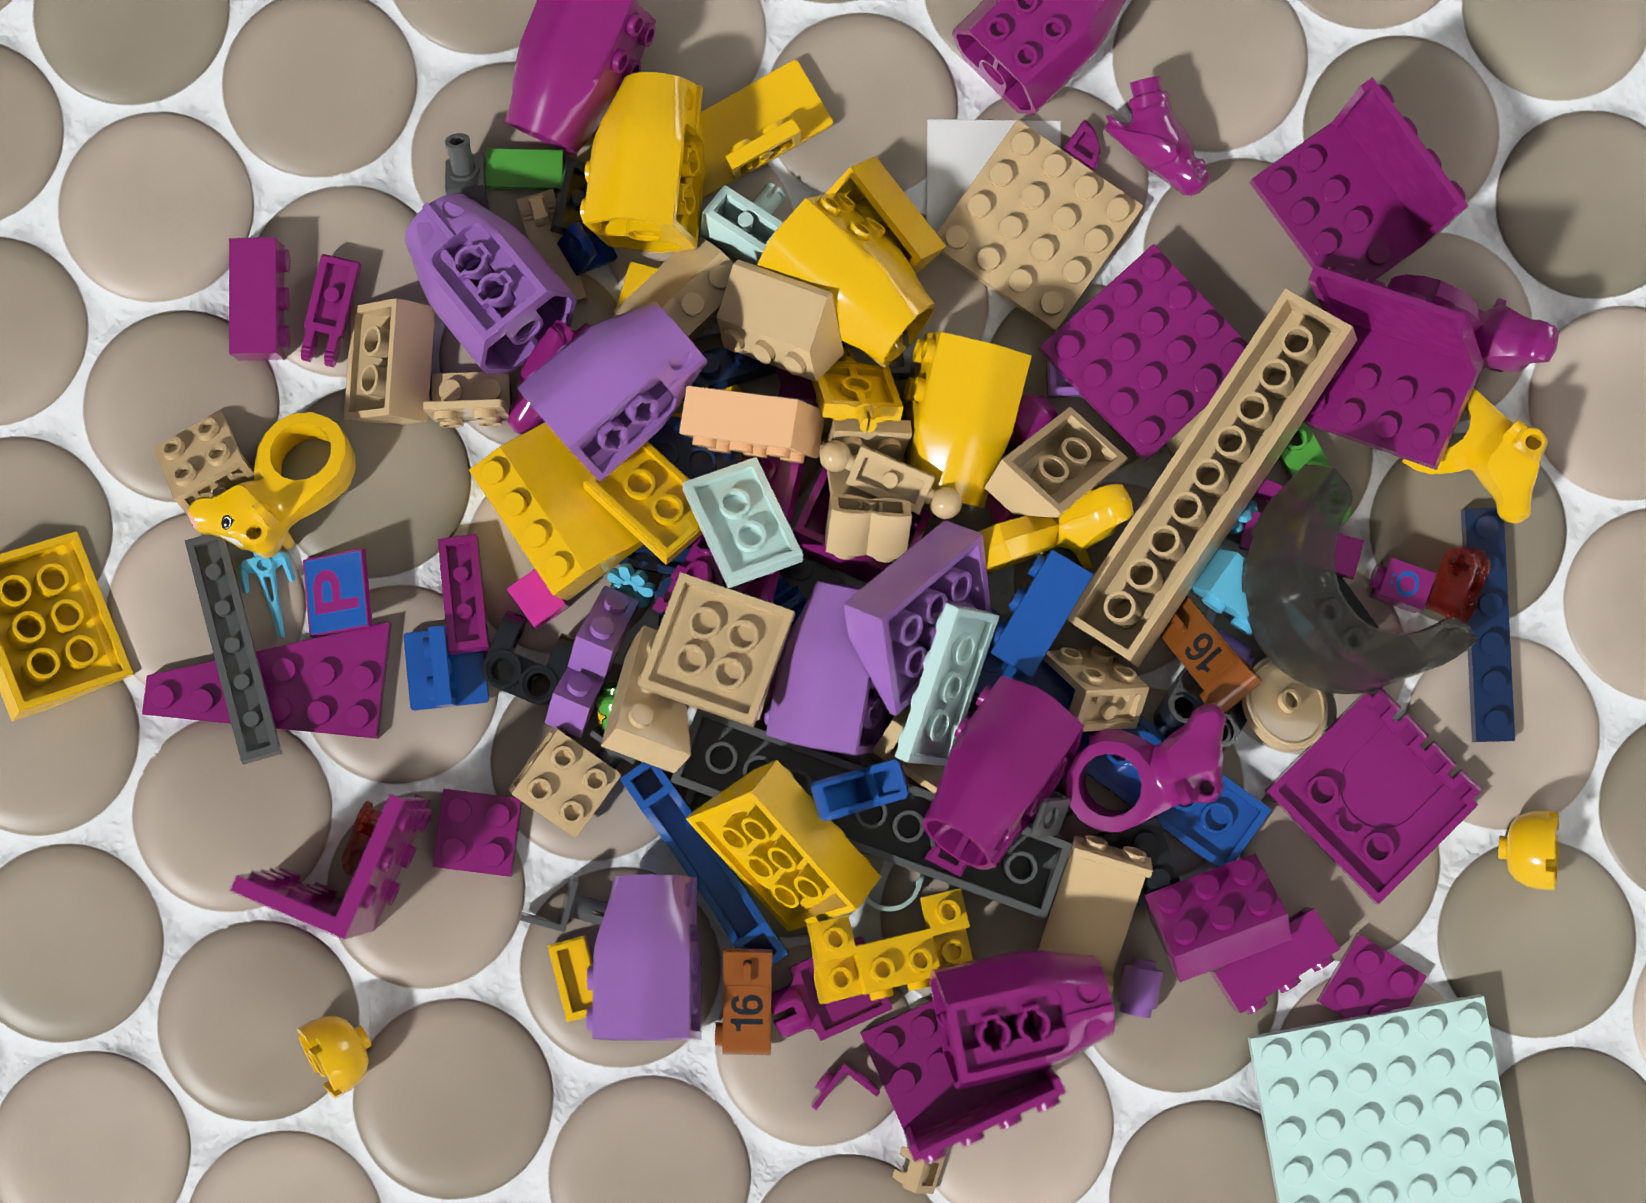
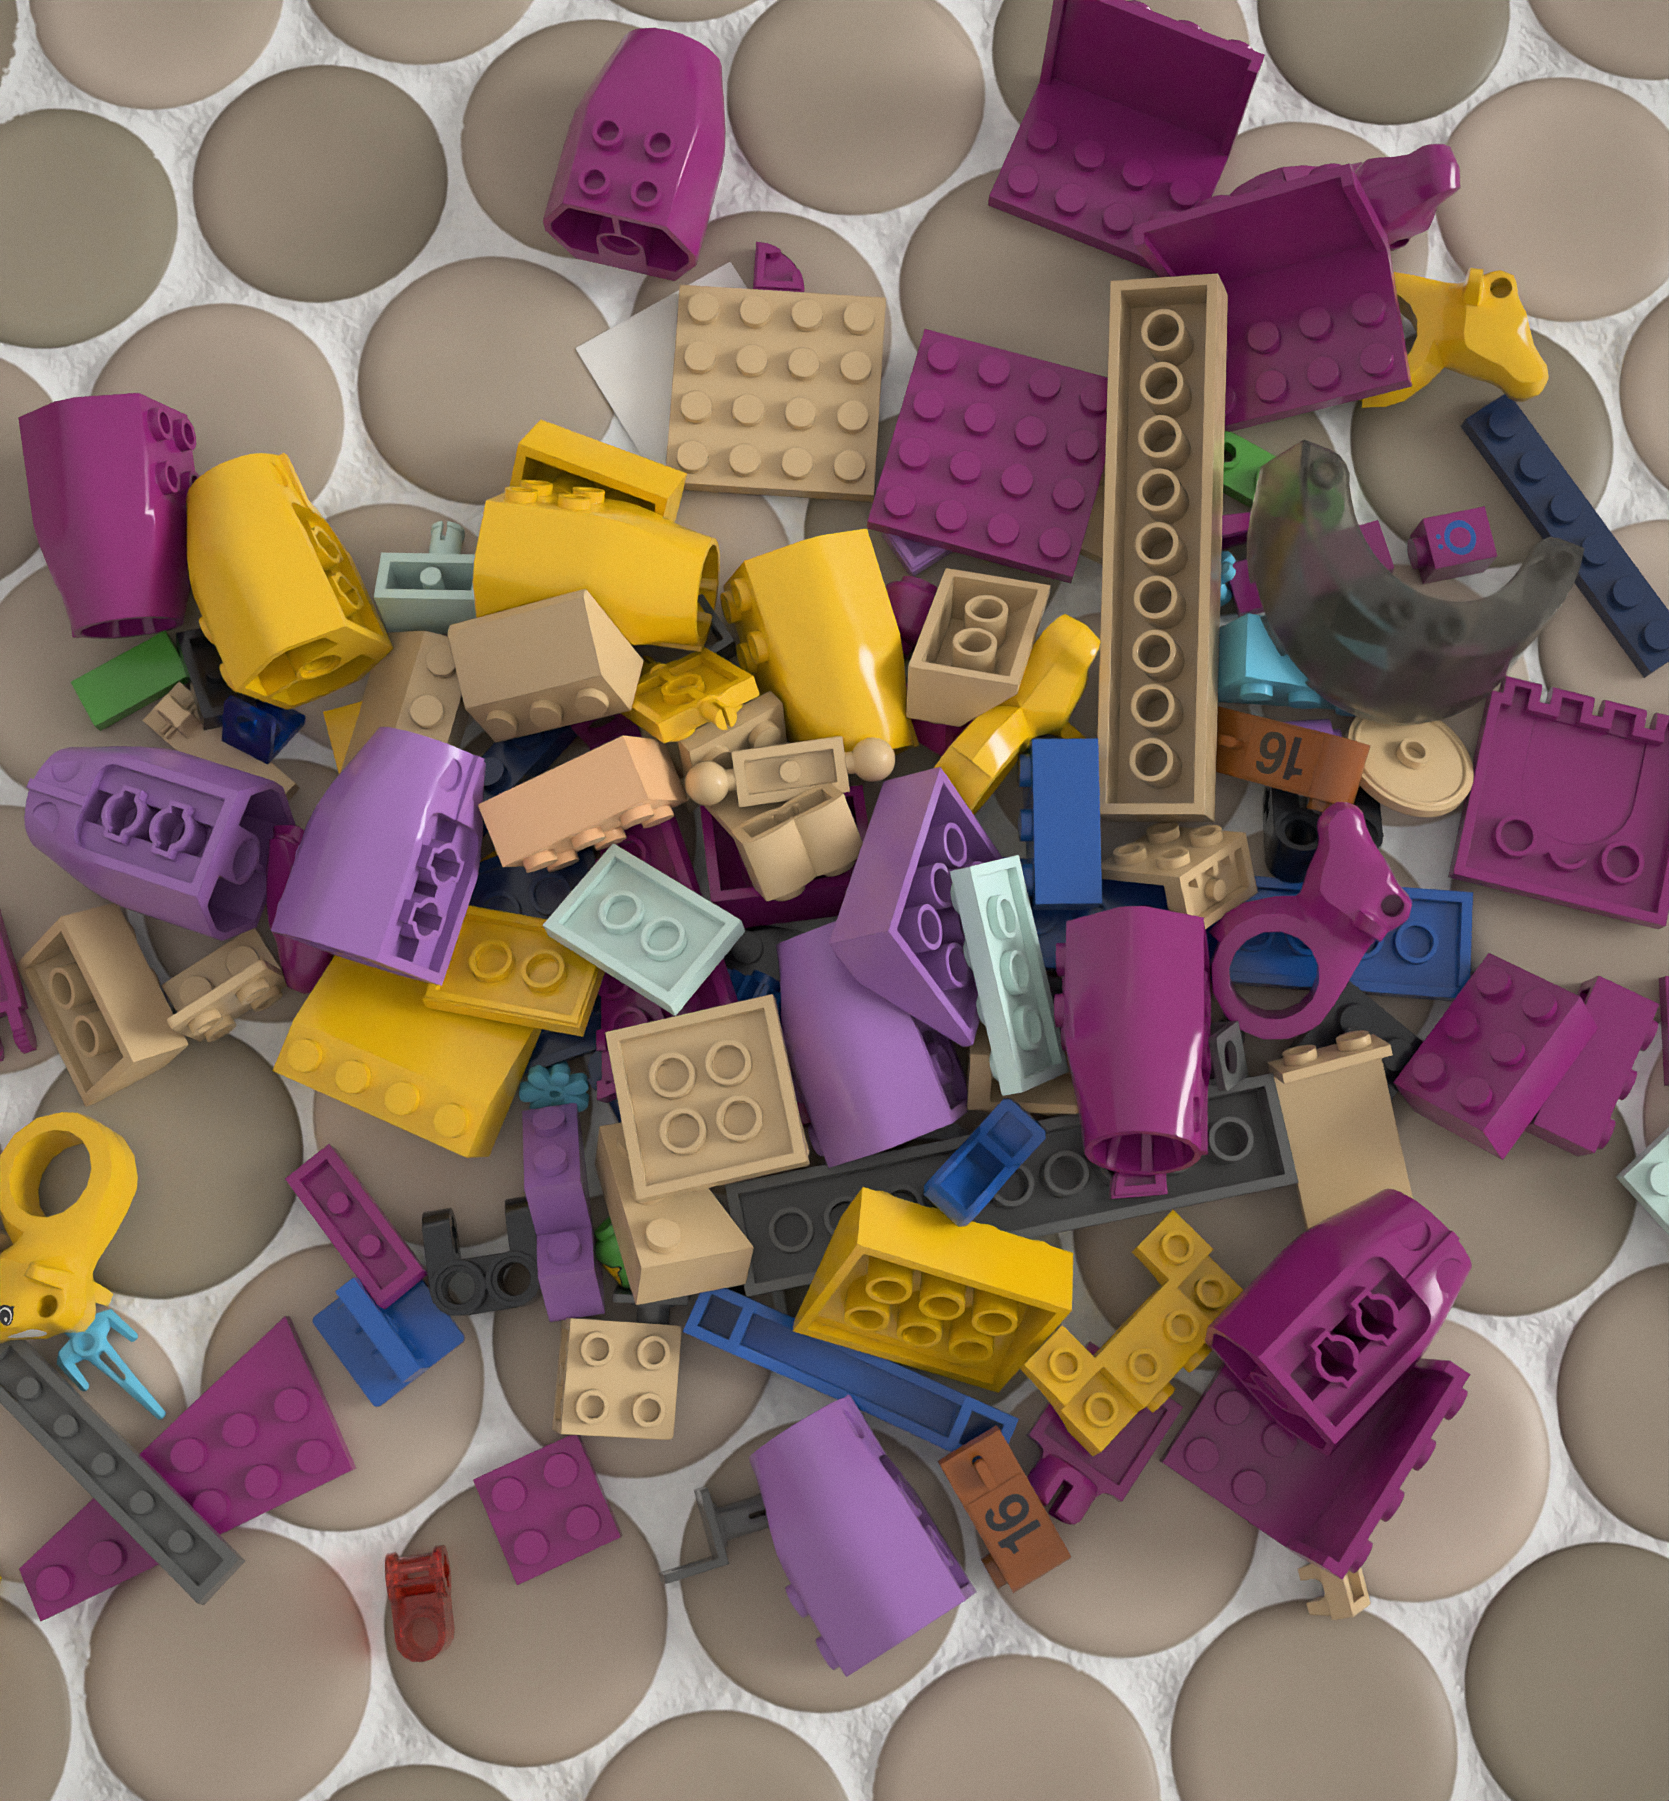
camera: 30 degrees left, 5 degrees down
(337, 592) = (199, 1319): blue piece -> none
(370, 888) = (453, 1662): magenta bracket -> none
(463, 171) = (55, 721): dark grey bracket -> none
(536, 600) = (450, 1177): dark pink panel -> none
(570, 966) = (762, 1602): yellow tile -> none
(759, 125) = (383, 465): yellow bracket -> none
(831, 1078) = (1162, 1540): magenta bracket -> none
(903, 904) = (1116, 1270): light aqua helmet -> none
(1140, 987) = (1456, 1196): medium lavender brick -> none
(1159, 138) = (856, 210): magenta animal -> none
(1456, 586) = (1517, 510): clear red piece -> none

